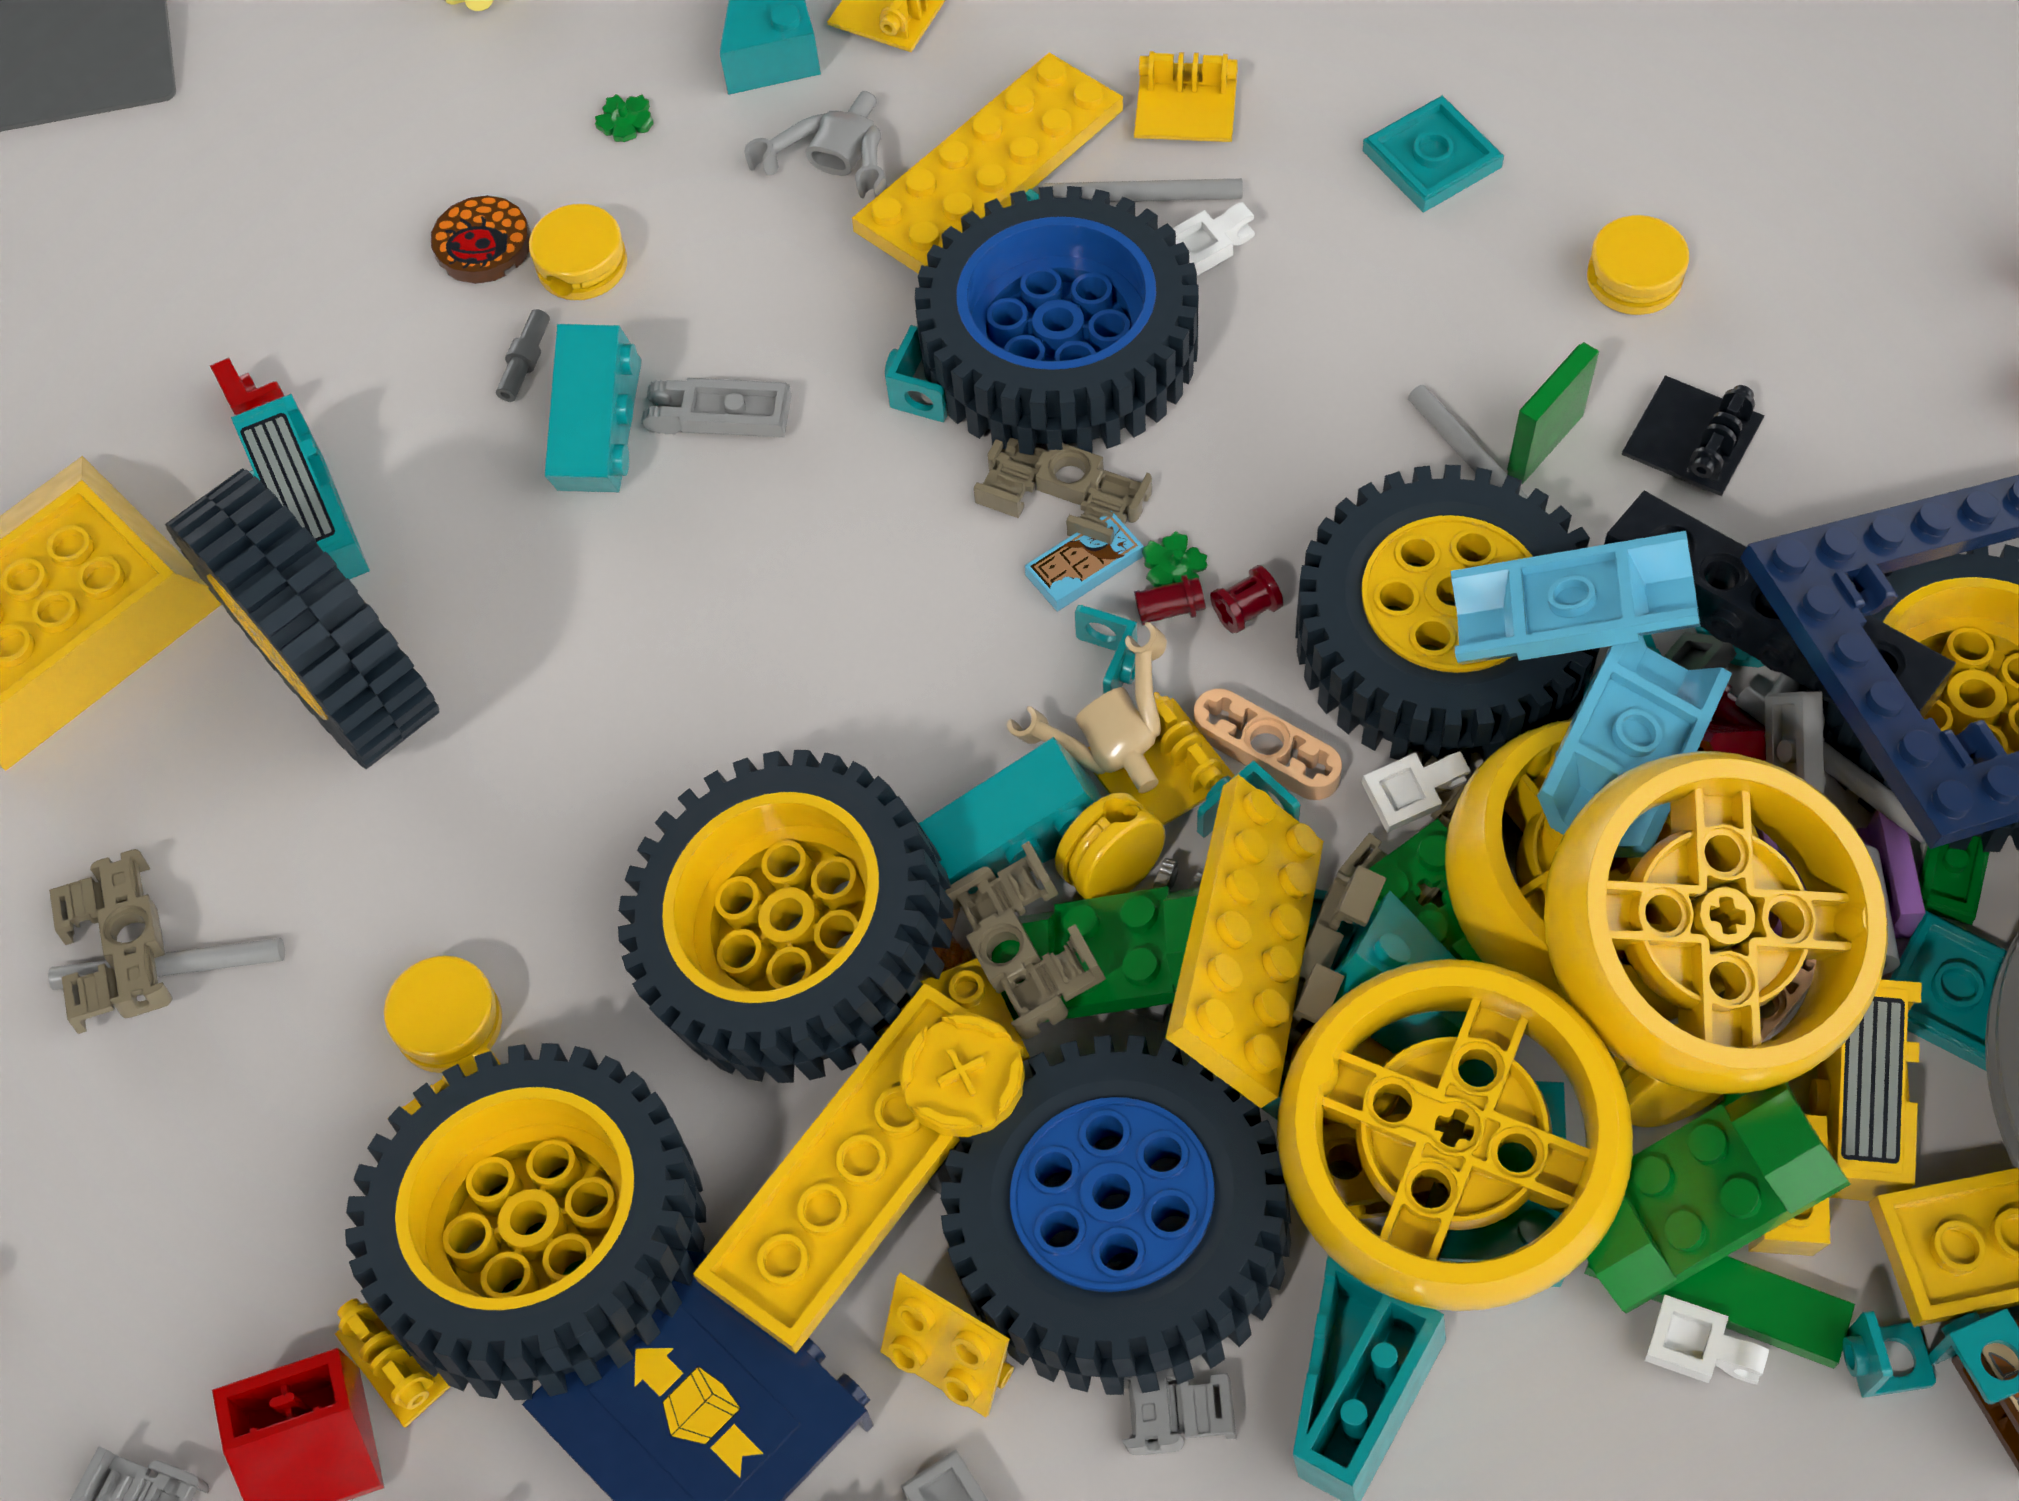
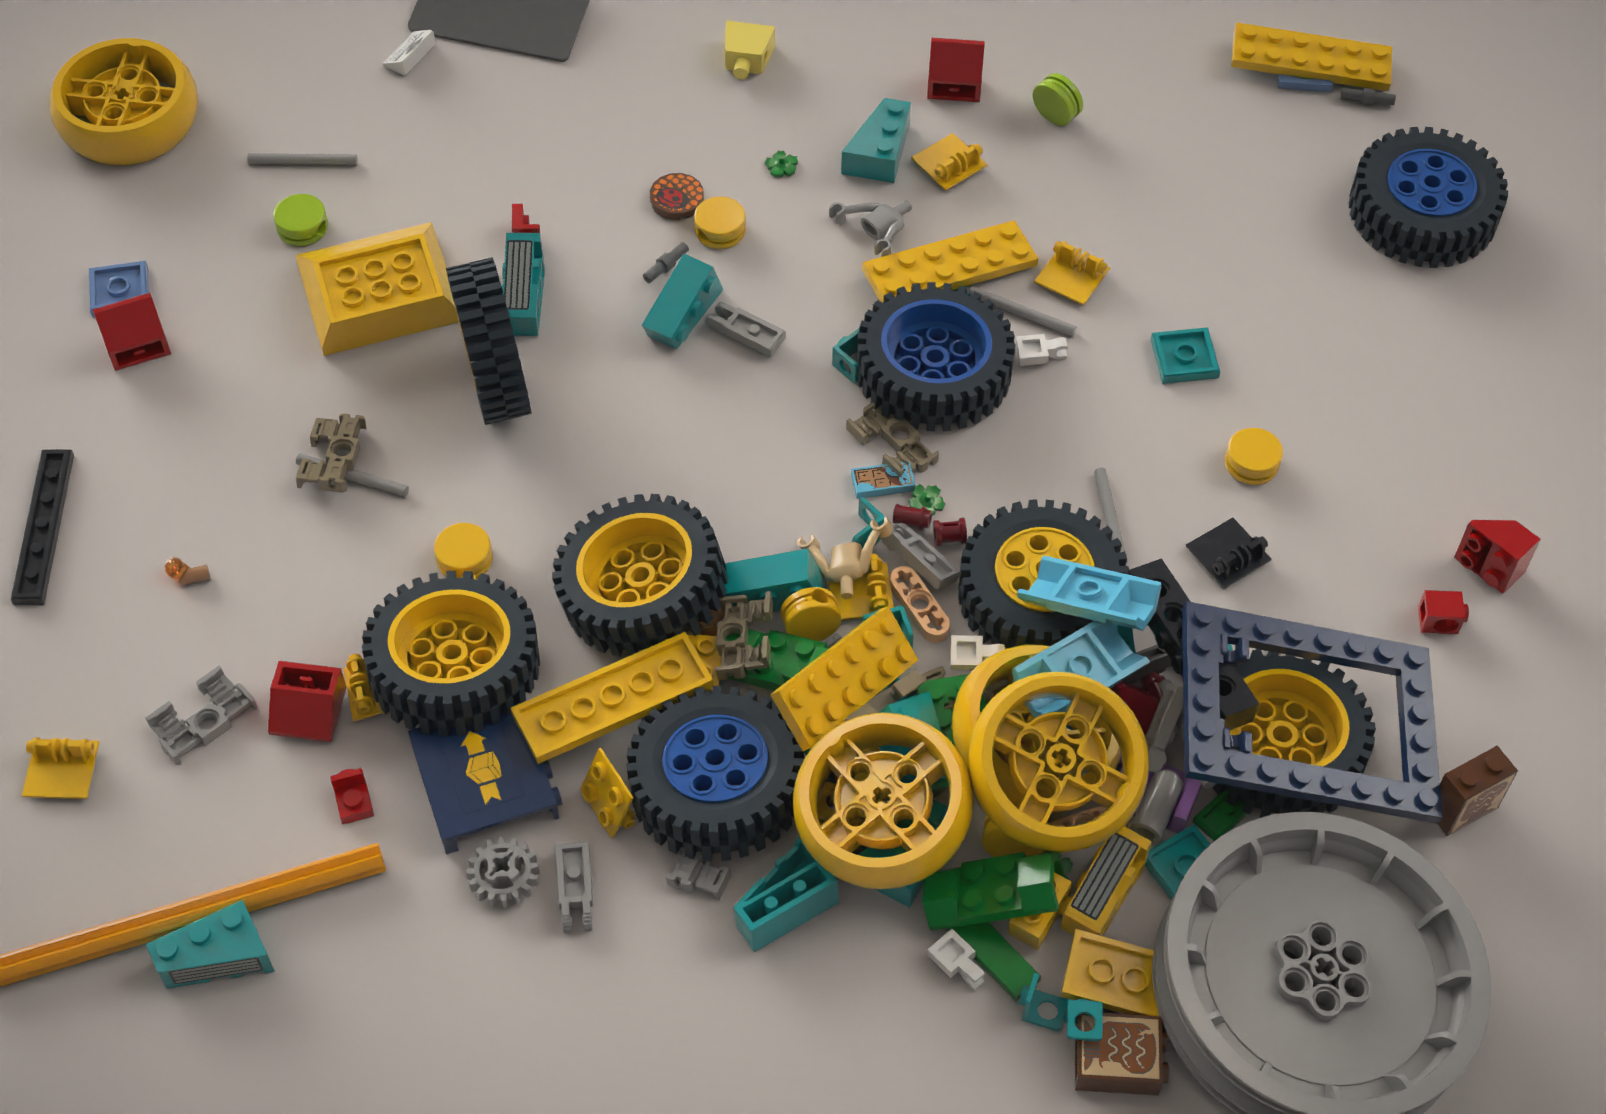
camera: 20 degrees right, 5 degrees down
(962, 1075) = (677, 678): yellow tile -> none
(1228, 662) = (921, 556): none -> light grey hinge
(1552, 412) = (1155, 507): green tile -> none

